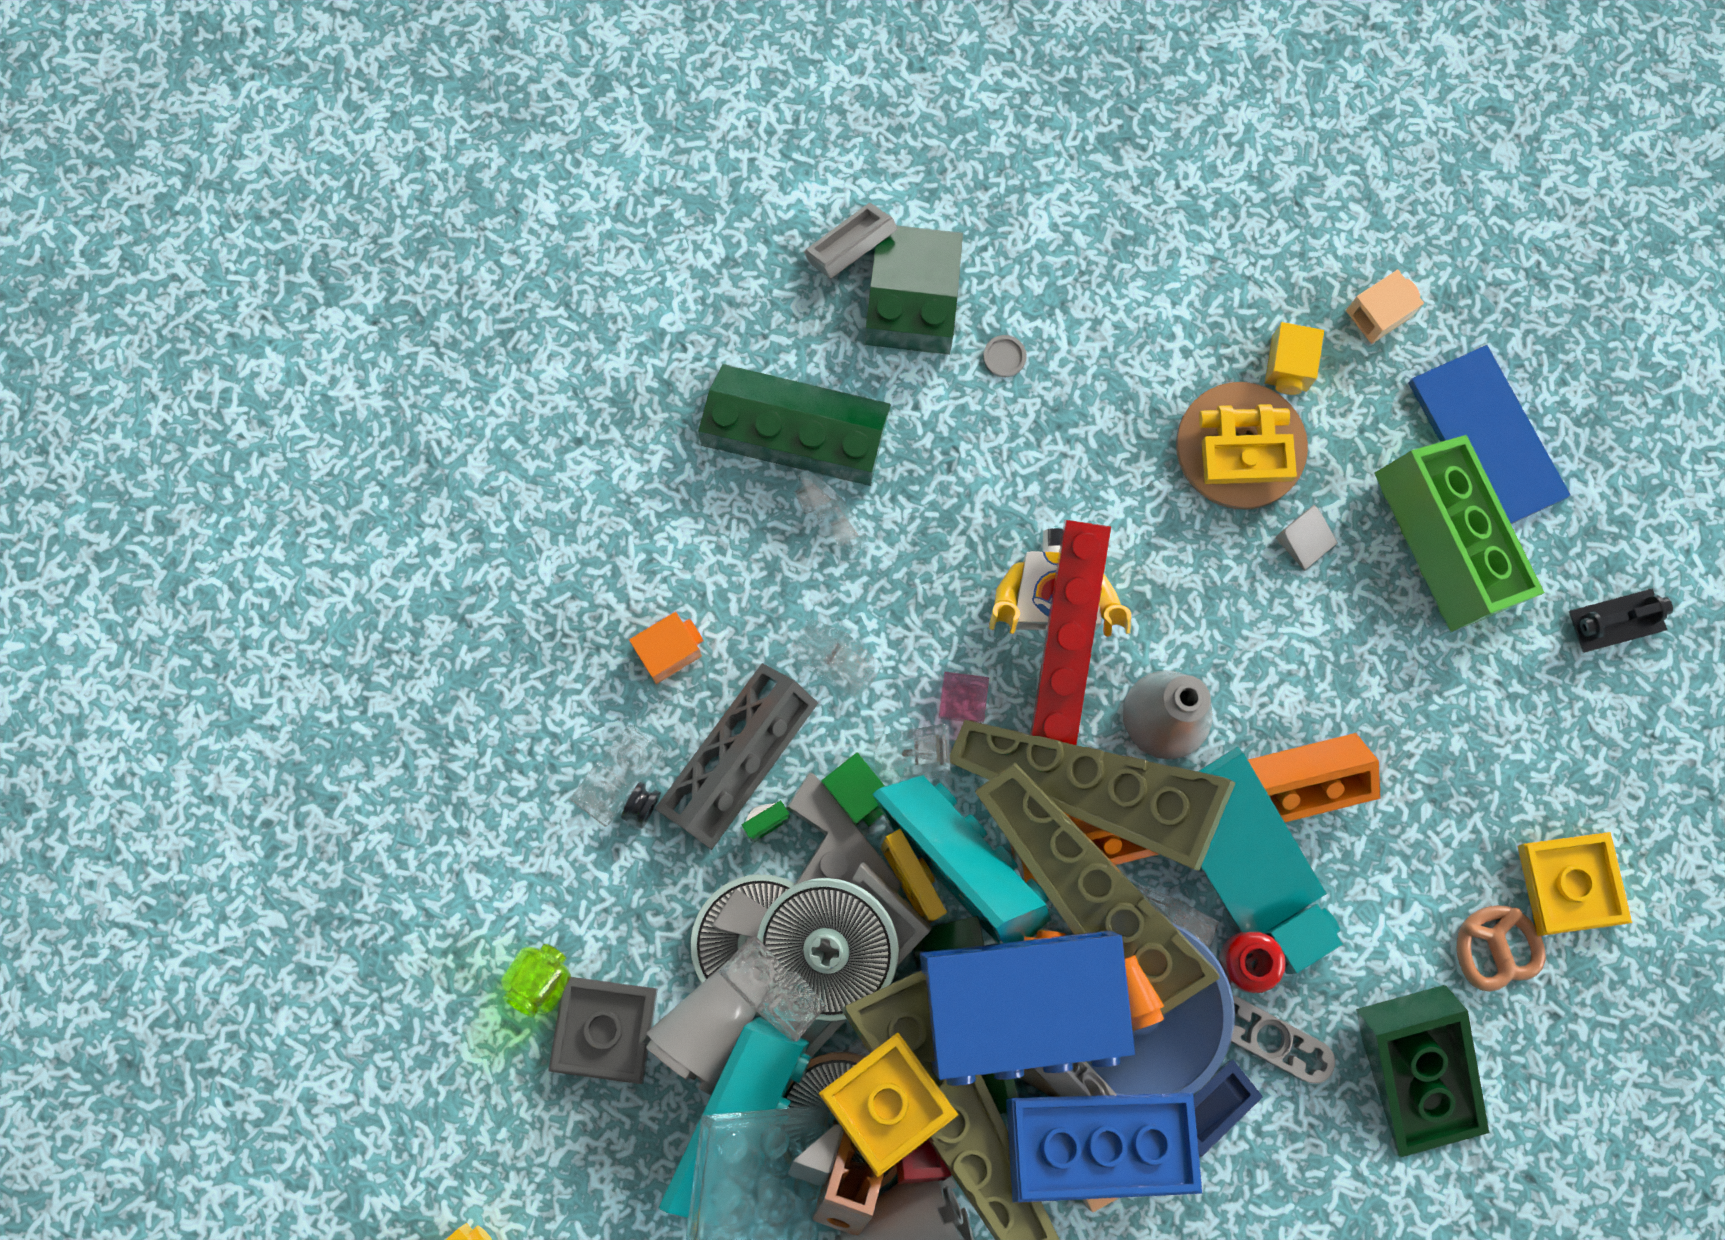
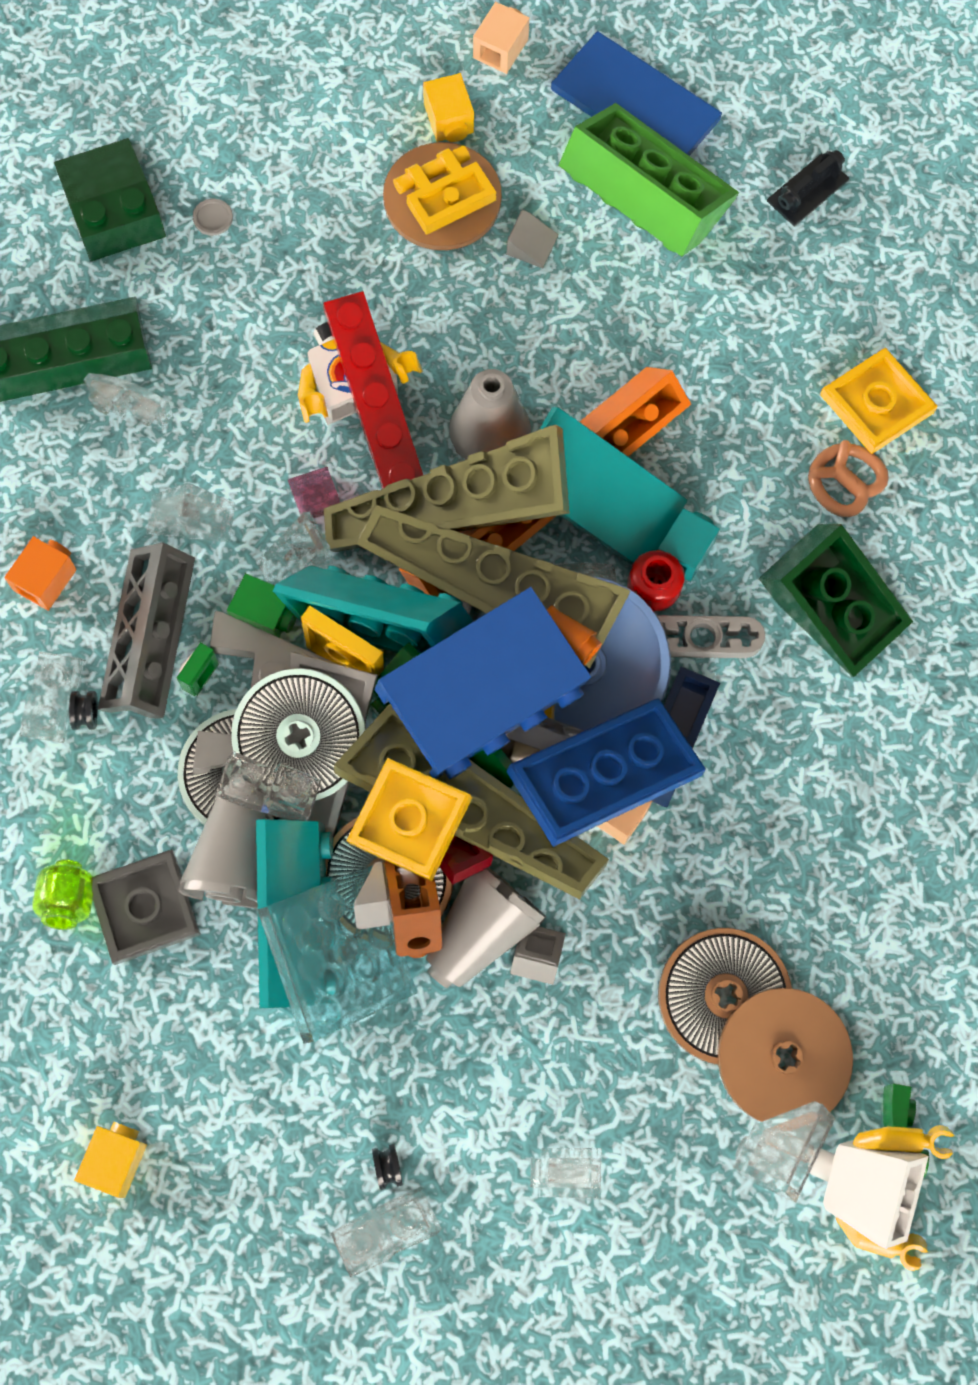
camera: 25 degrees left, 5 degrees down
(850, 240) = (35, 183): light grey tile -> none

